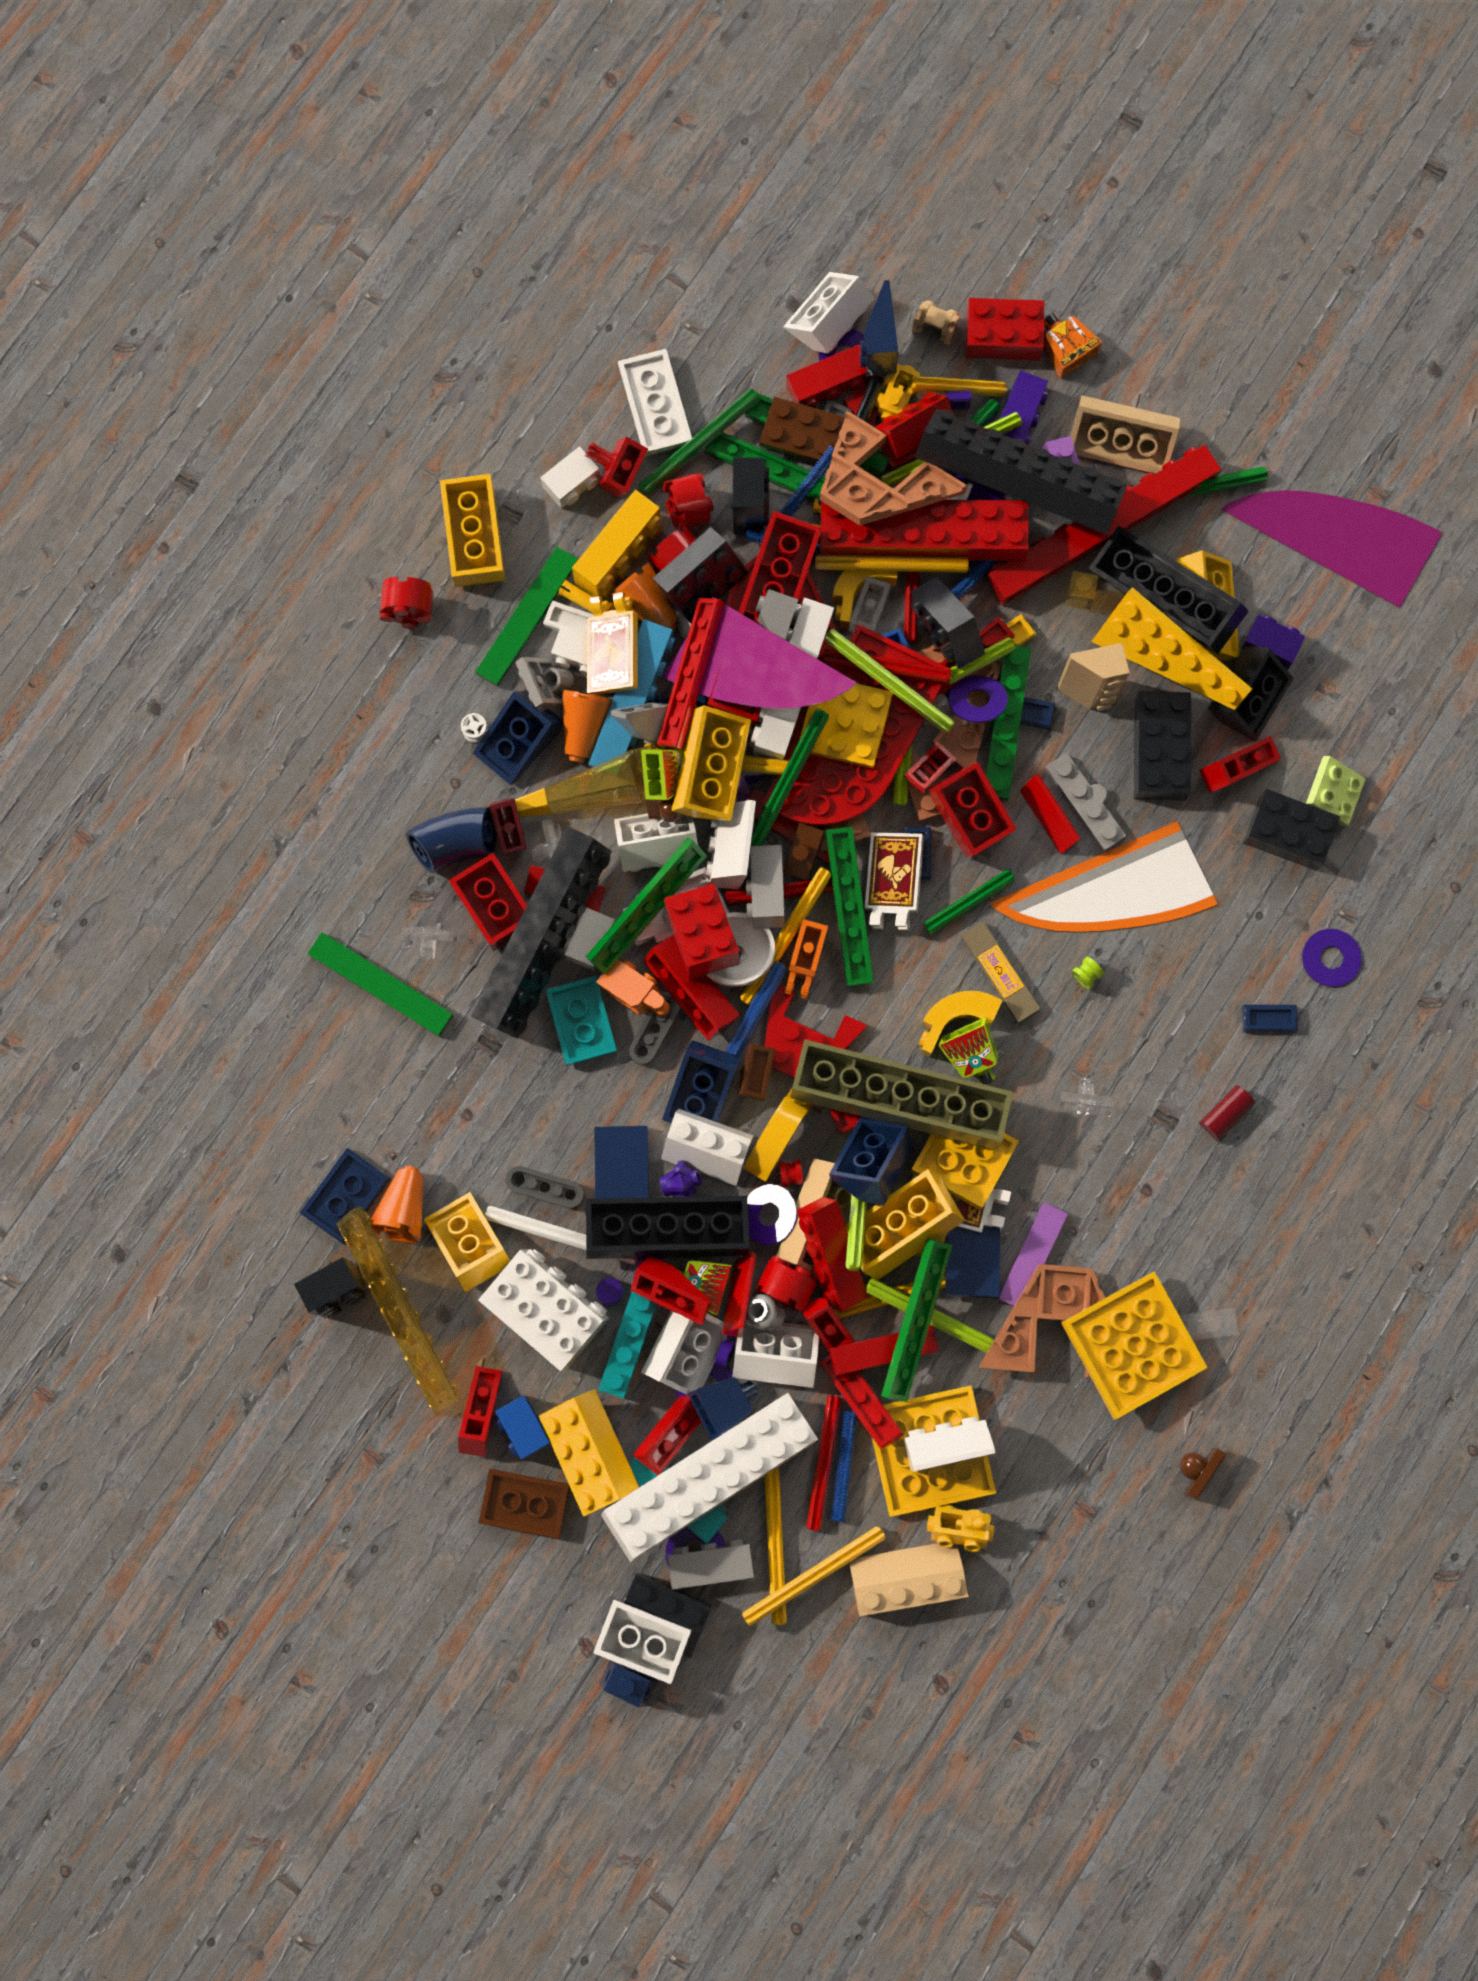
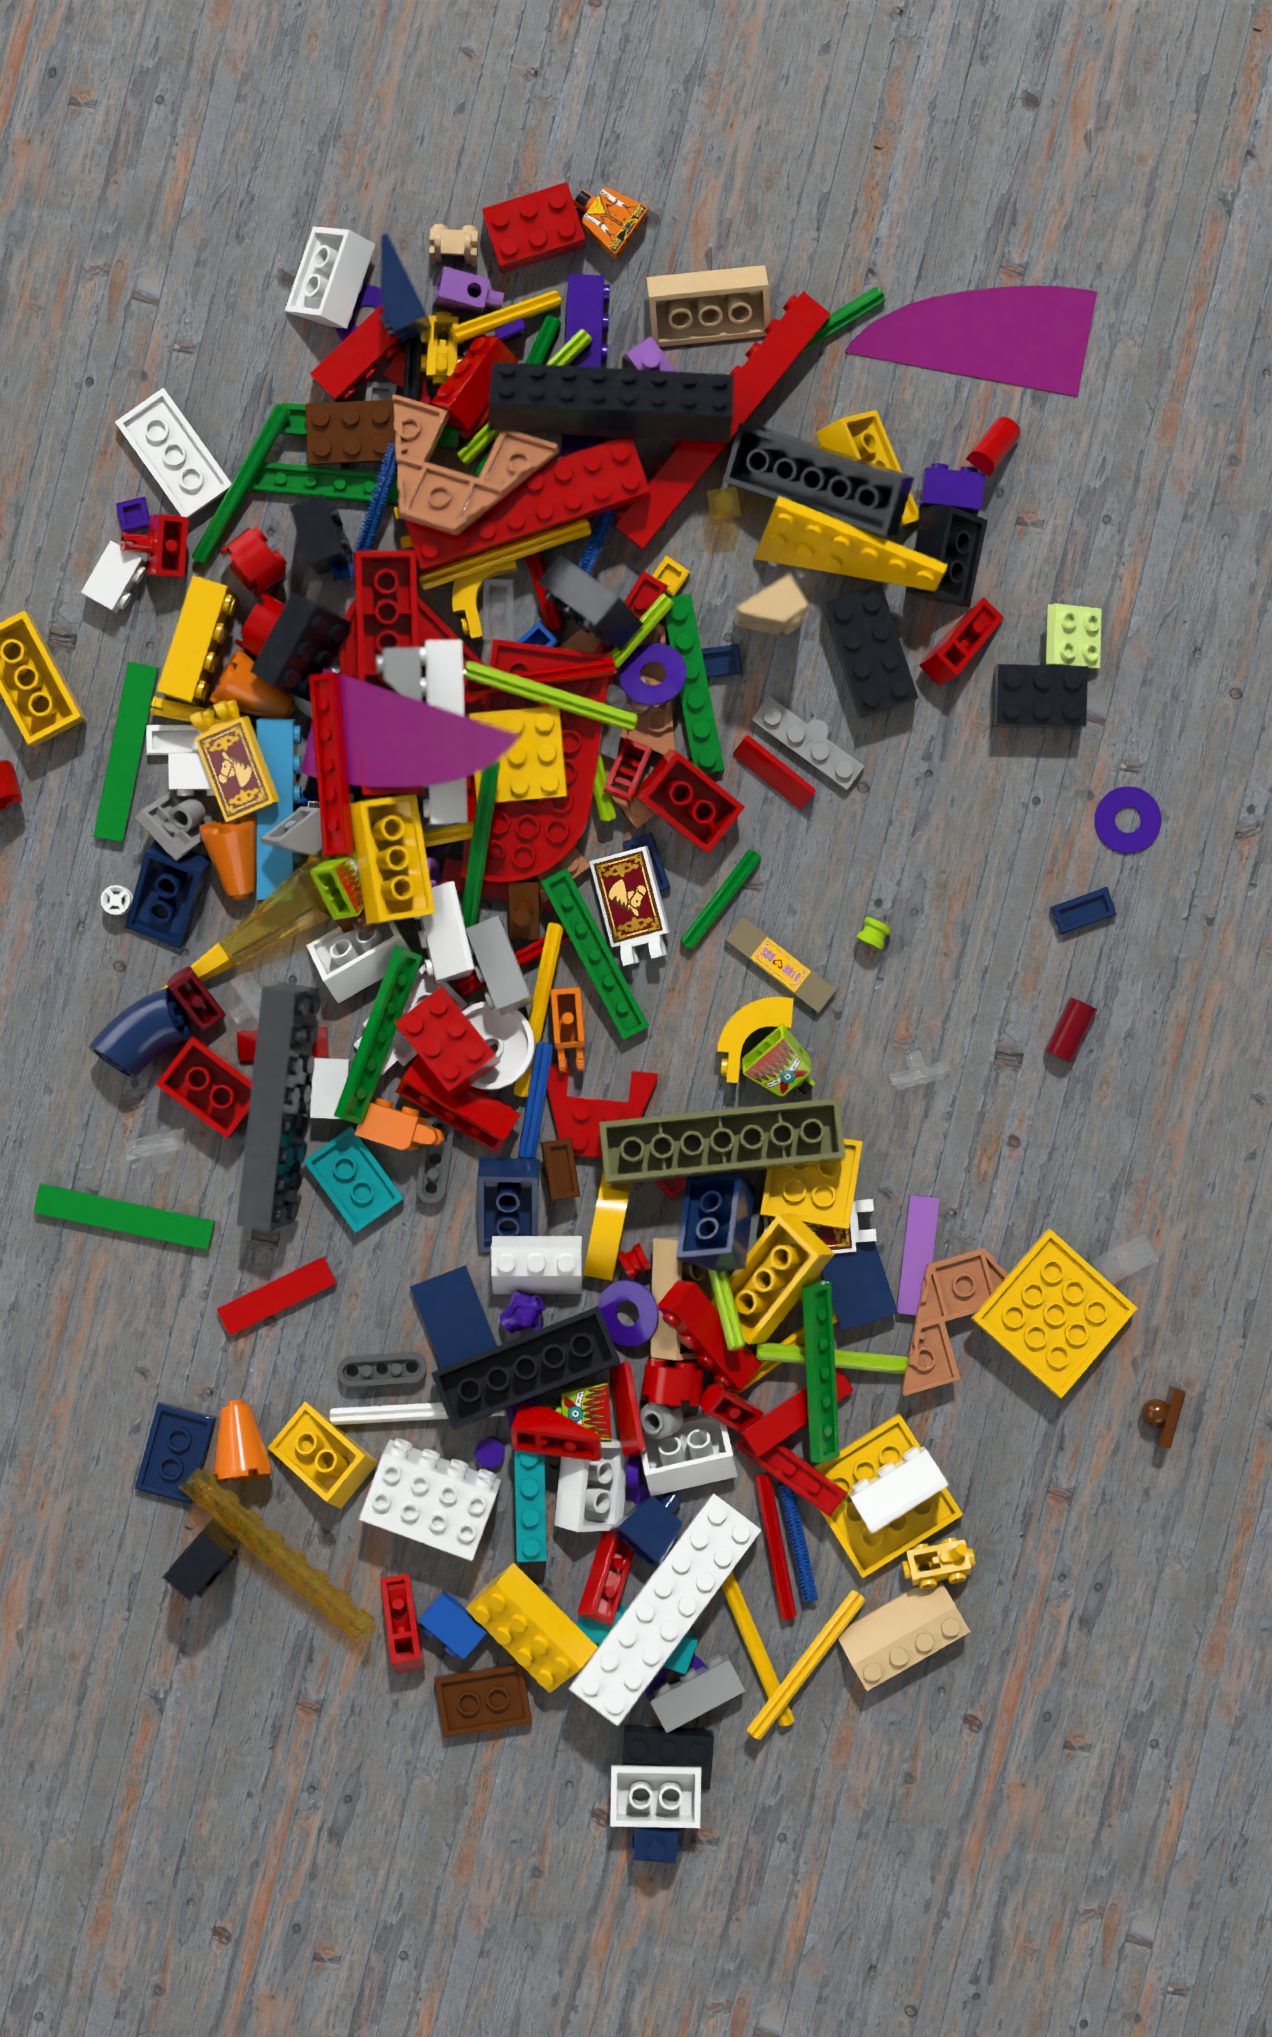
camera: 25 degrees left, 10 degrees up
(480, 1094) = (276, 1295): none -> red tile
(605, 436) = (133, 514): none -> dark purple tile
(932, 356) = (453, 295): none -> medium lavender torso
(1120, 889) = (878, 824): sticker -> none
(1320, 618) = (994, 445): none -> red brick

